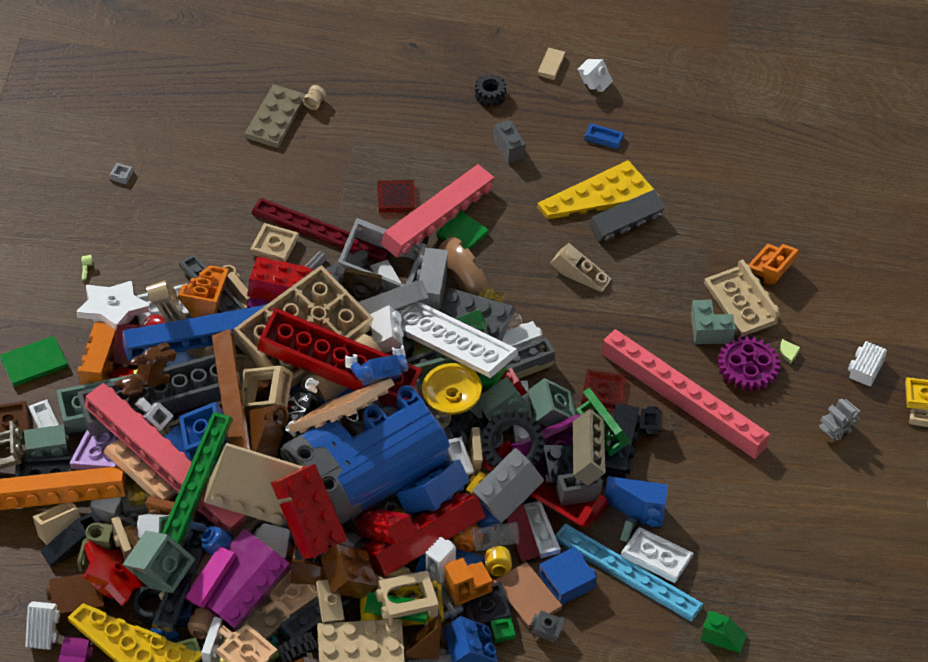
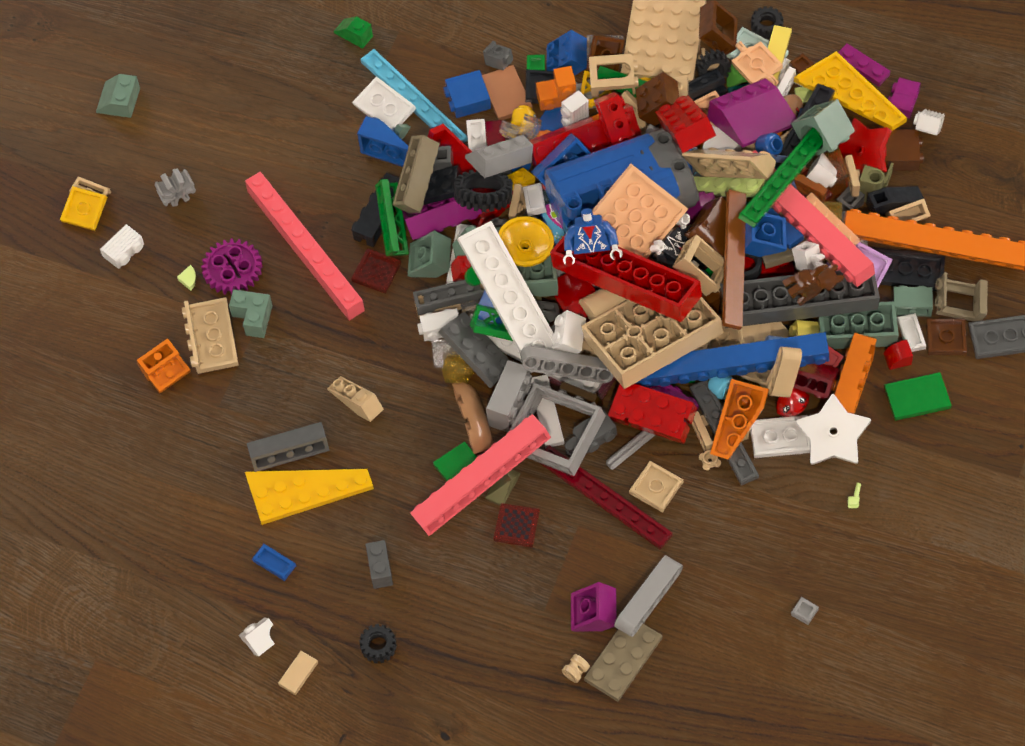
camera: 160 degrees left, 10 degrees up
(49, 389) = (898, 355): none -> red brick
(211, 577) = (778, 115): dark pink tile -> none
(261, 152) = (648, 596): none -> light grey beam
(308, 140) = (593, 608): none -> magenta slope
(651, 420) = (344, 219): black brick -> none

